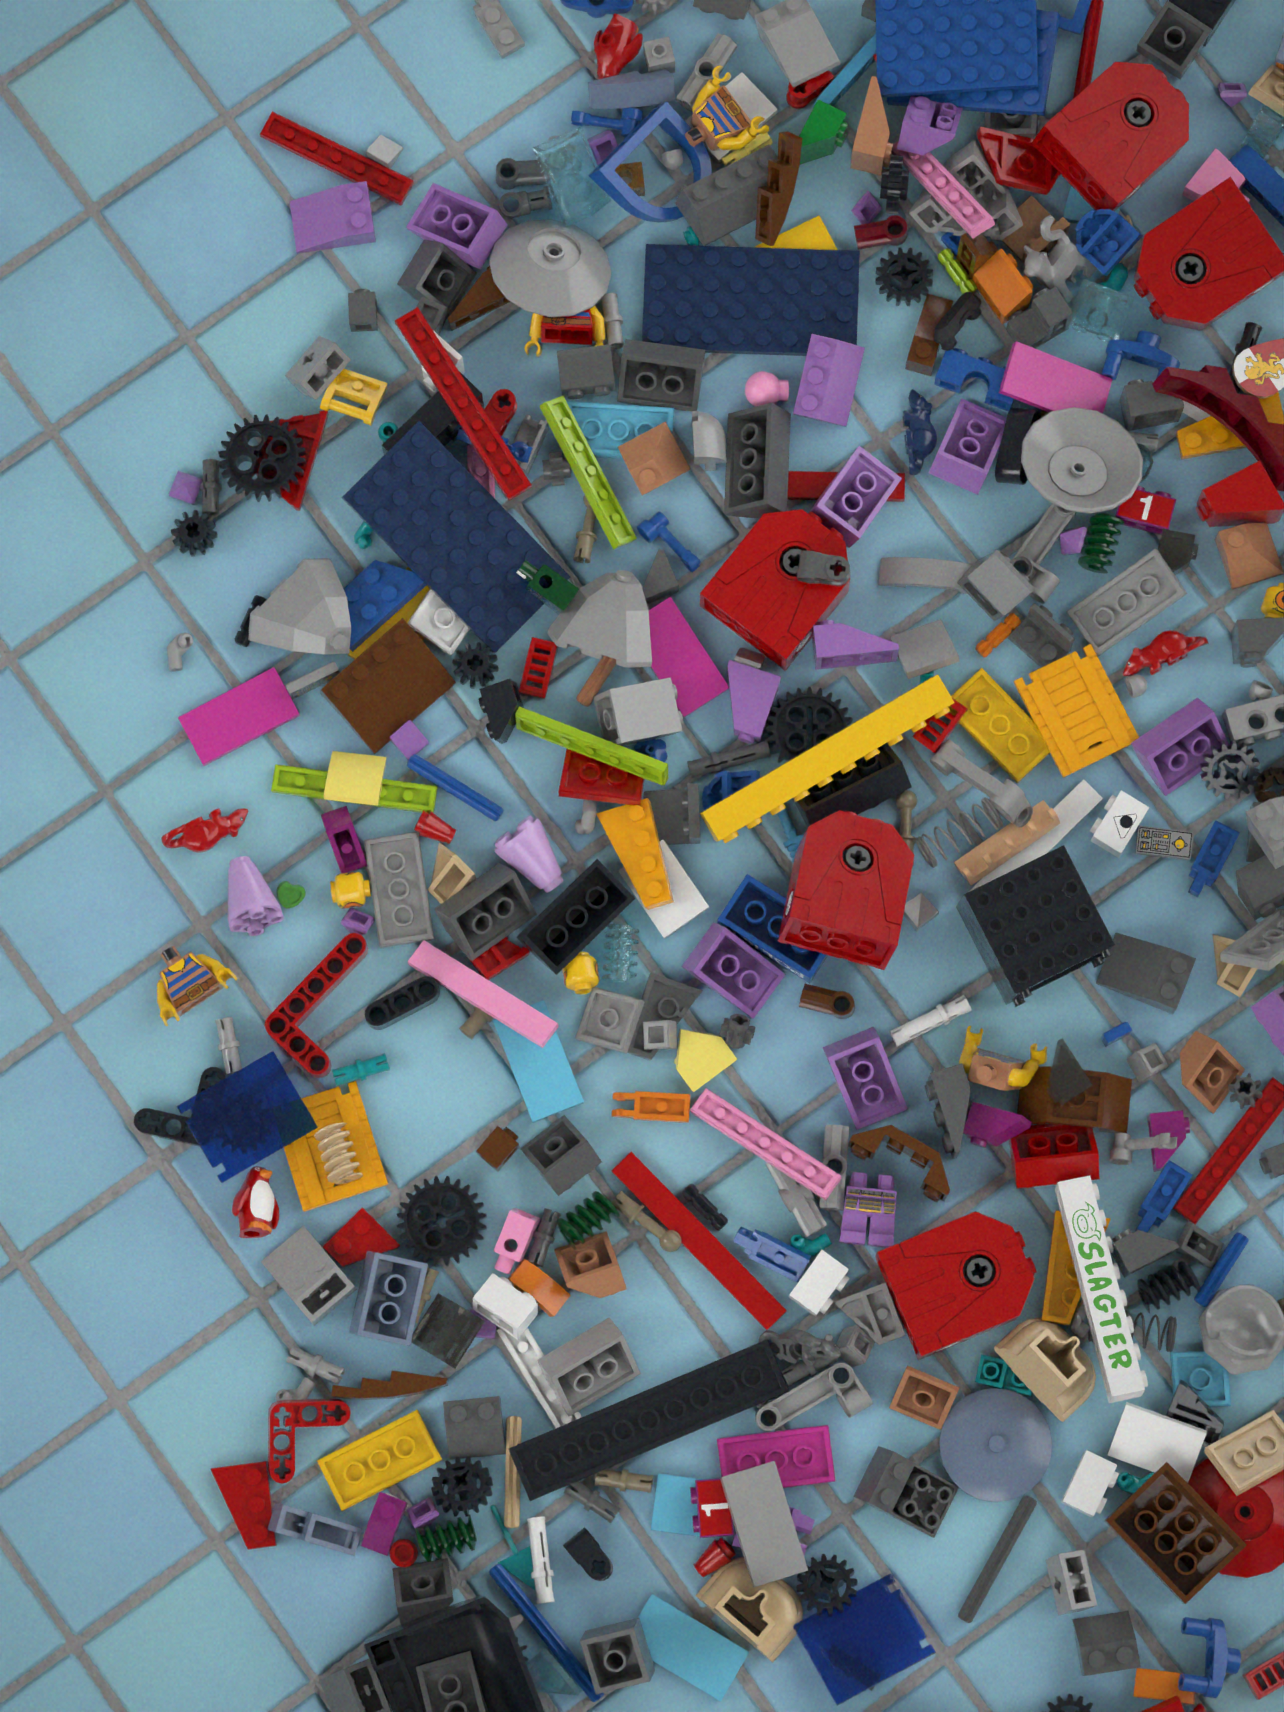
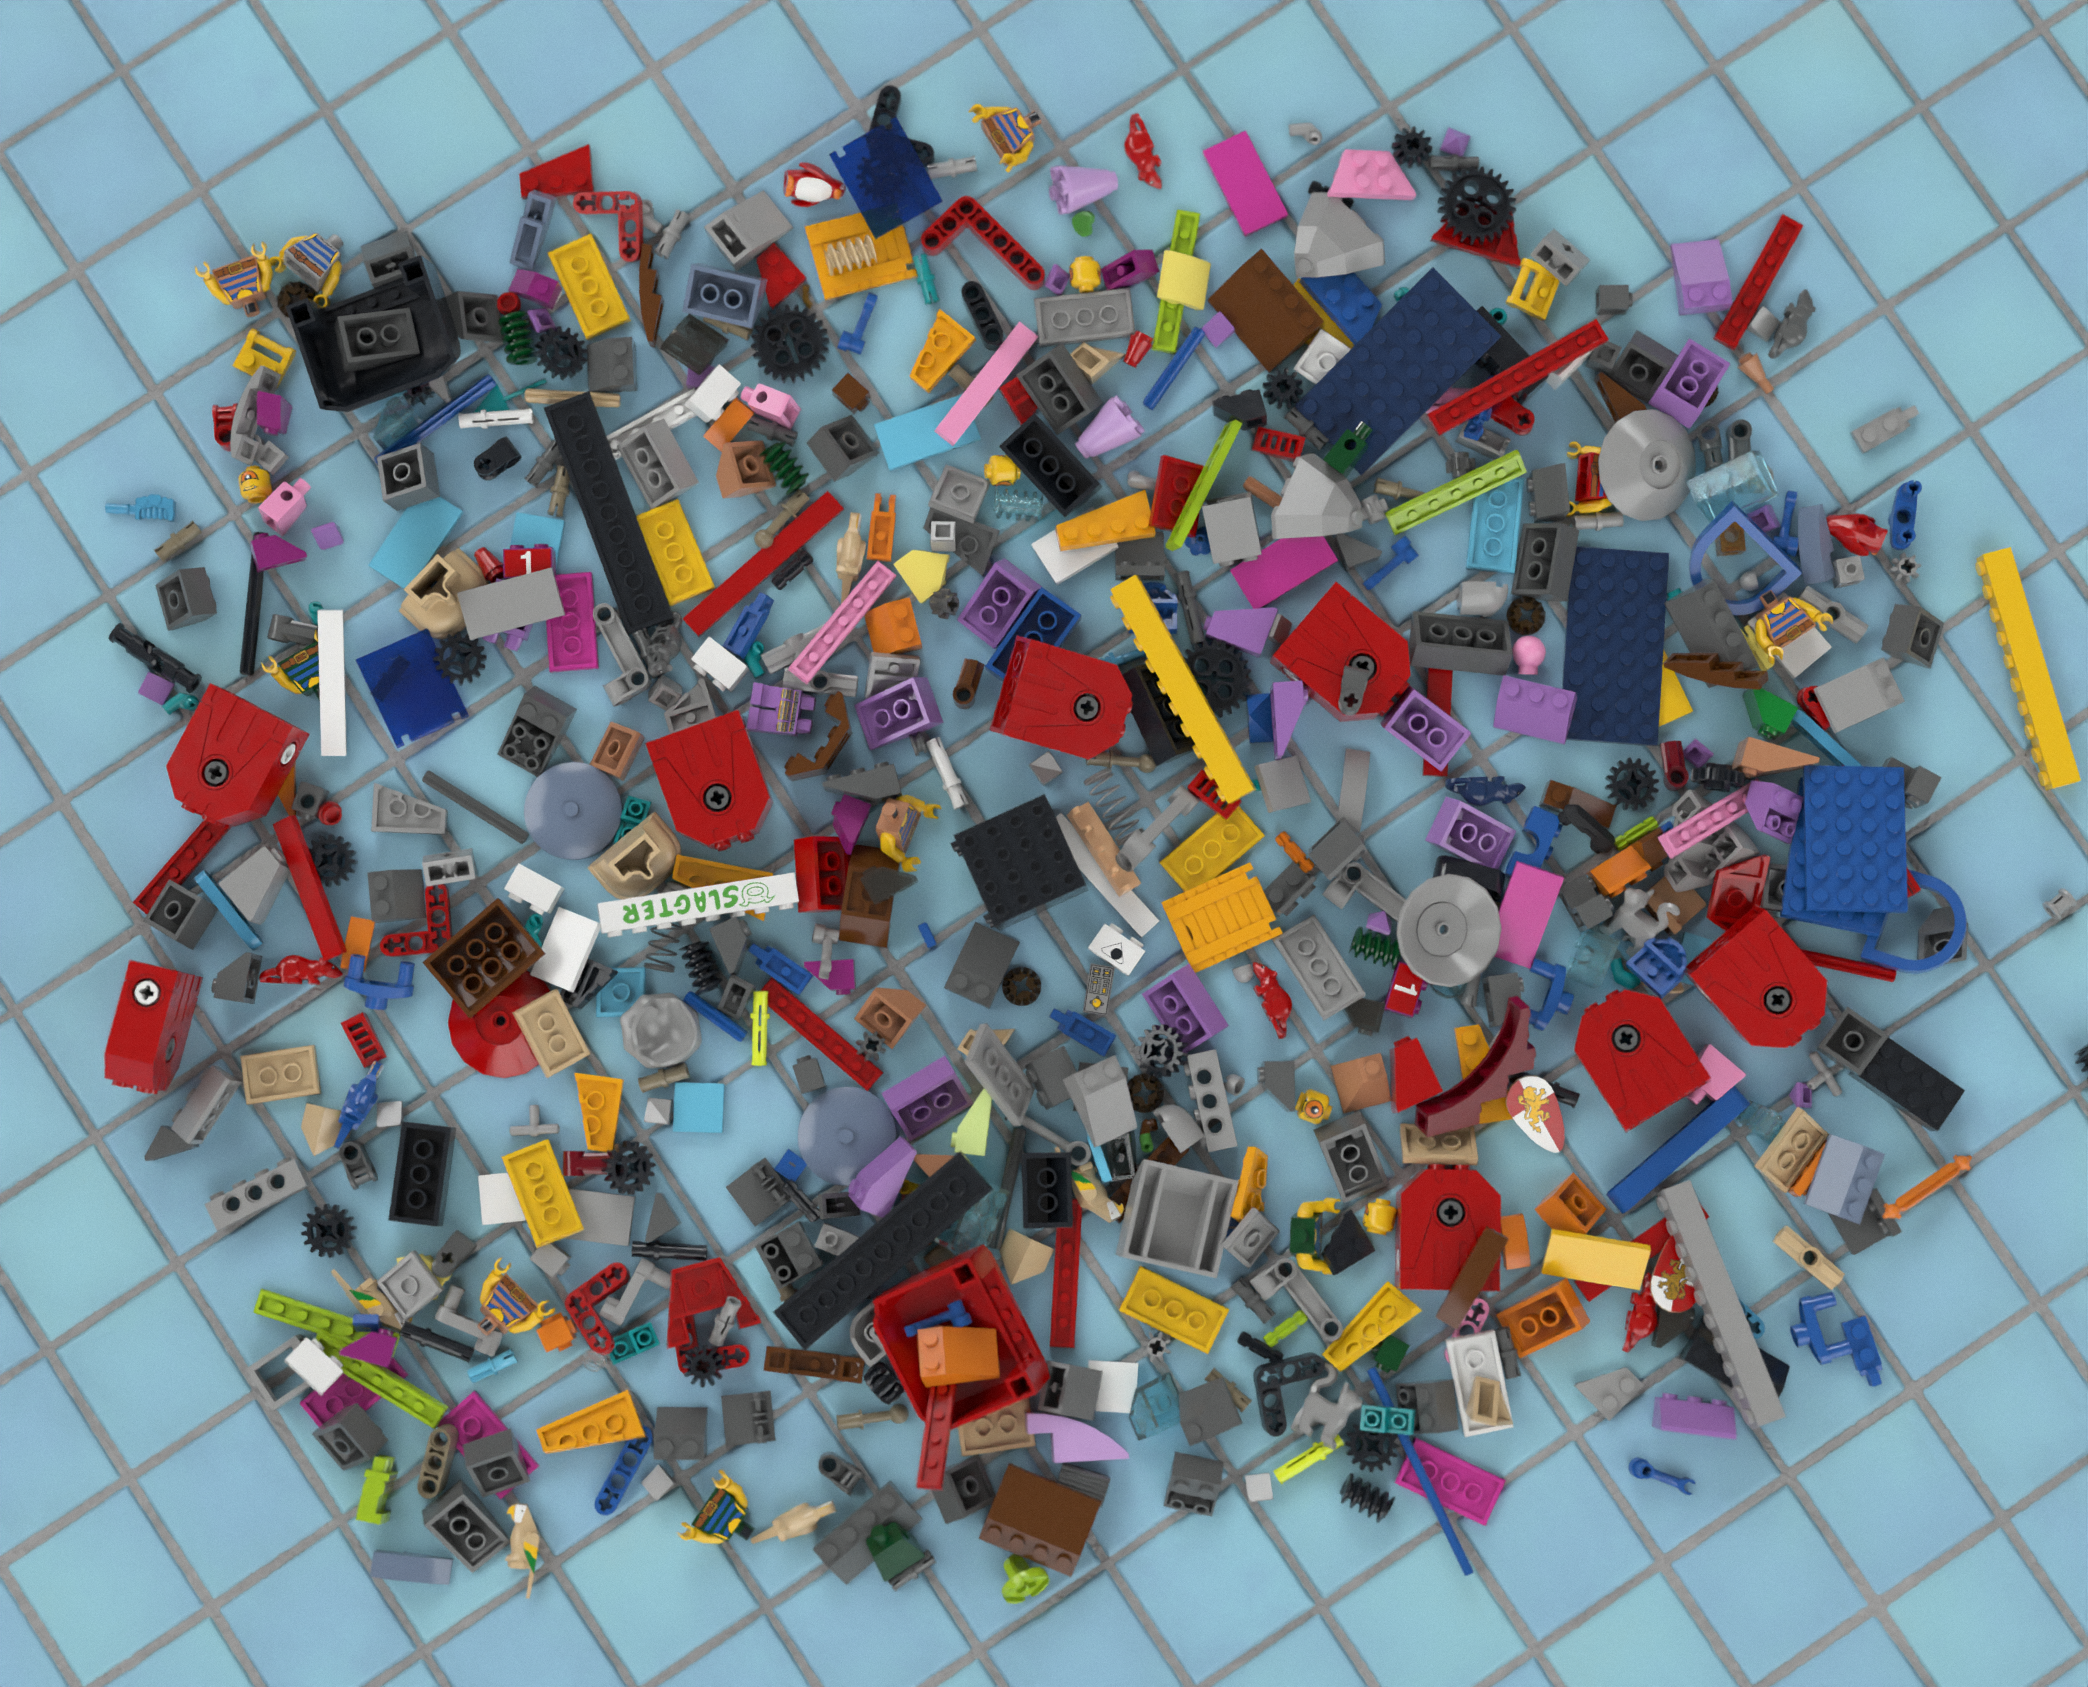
camera: 90 degrees right, 5 degrees up
(229, 577) = (1370, 176): none -> bright pink wing
(312, 680) = (1274, 246): light grey tile -> none
(382, 1207) = (807, 302): none -> pearl gold leg
(389, 118) = (1794, 327): none -> dark grey animal
(432, 162) = (1753, 368): none -> nougat cone
(435, 1149) = (853, 341): none -> blue brick
(443, 1048) = (944, 347): none -> light orange wing
(519, 638) = (1306, 428): none -> dark grey pin
(609, 560) = (1373, 509): none -> light grey gear
(653, 458) = (1466, 550): nougat slope -> none
(686, 1141) = (850, 554): none -> tan animal
(689, 1342) = (675, 552): none -> yellow tile
(721, 407) = (1525, 627): none -> dark brown gear
(769, 1087) = (893, 627): none -> orange slope
(819, 1089) = (889, 670): none -> light grey wing
(849, 679) = (1259, 718): none -> blue slope
(899, 1054) = (918, 743): none -> dark grey bush
(1010, 1639) = (404, 814): none -> light grey wing
(1147, 1062) = (902, 963): light grey slope -> none
(1150, 1606) = (428, 937): none -> red beam
(1161, 915) = (1010, 989): none -> dark brown gear
(1208, 69) = (1825, 1074): none -> light grey piece
(1232, 1217) = (759, 998): none -> neon yellow pin

